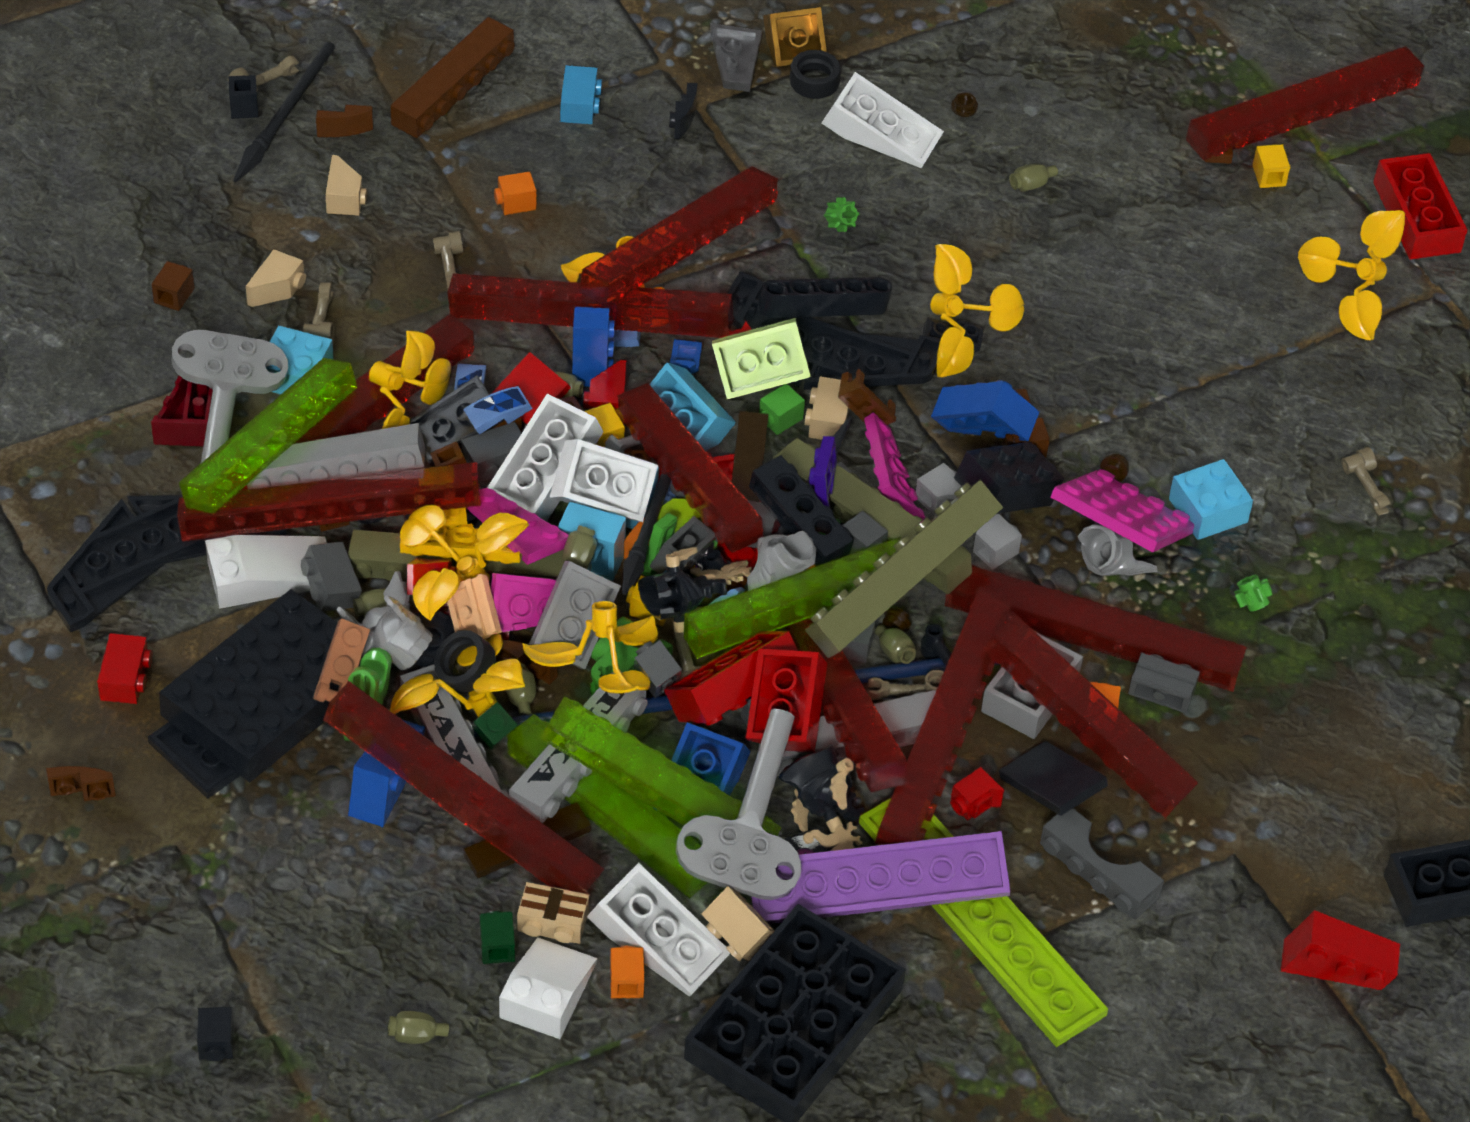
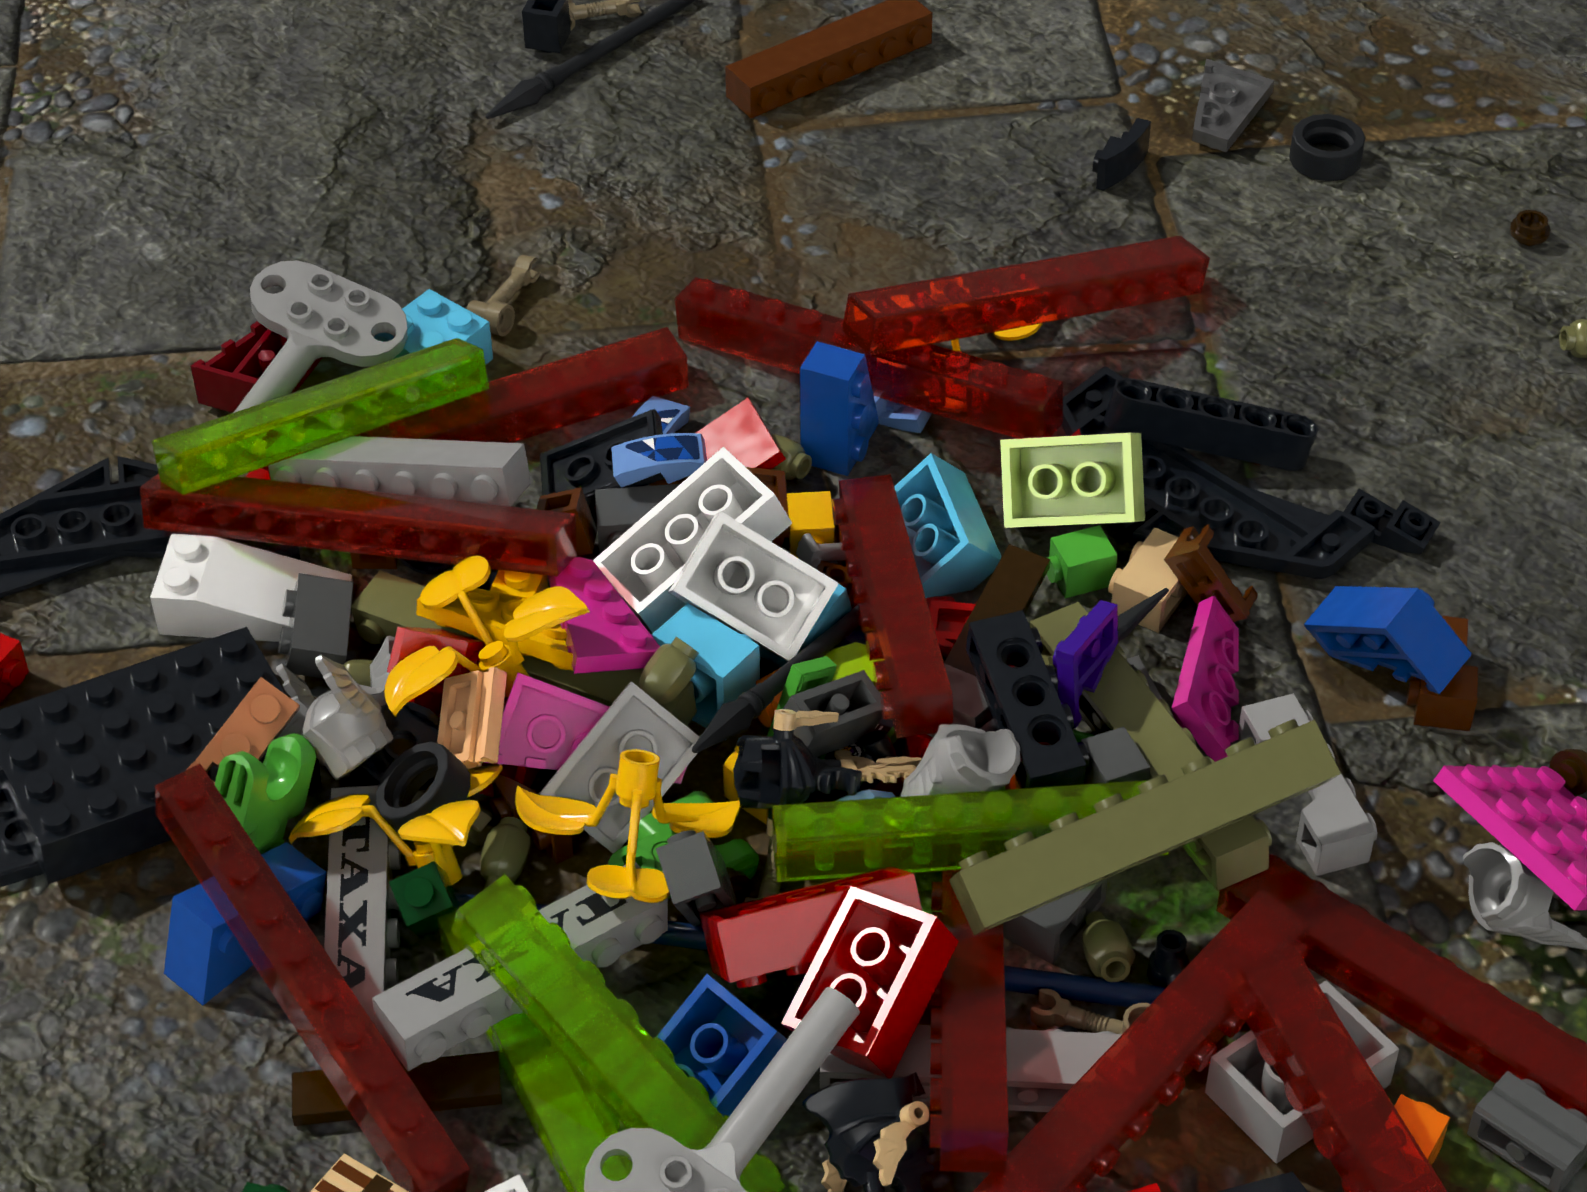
camera: 25 degrees right, 5 degrees down
(173, 286) = (334, 218): reddish brown brick -> none
(275, 279) = (466, 239): tan slope -> none
(344, 189) = (615, 153): tan slope -> none
(352, 121) = (671, 78): reddish brown slope -> none
(416, 356) = (555, 351): yellow plant -> none
(447, 247) = (718, 249): dark tan brick -> none
(516, 193) = (841, 204): orange brick -> none
(579, 95) = (987, 107): dark azure brick -> none
(606, 387) = (843, 463): red slope -> none
(686, 354) = (978, 460): blue slope -> none
(794, 33) = (1318, 87): pearl gold slope -> none
(841, 214) = (1298, 325): bright green gear -> none
(881, 123) = (1395, 223): white slope -> none
(897, 619) = (1125, 909): dark brown plate -> none
(950, 272) = (1401, 422): yellow plant -> none
(1013, 474) = (1388, 738): black brick -> none

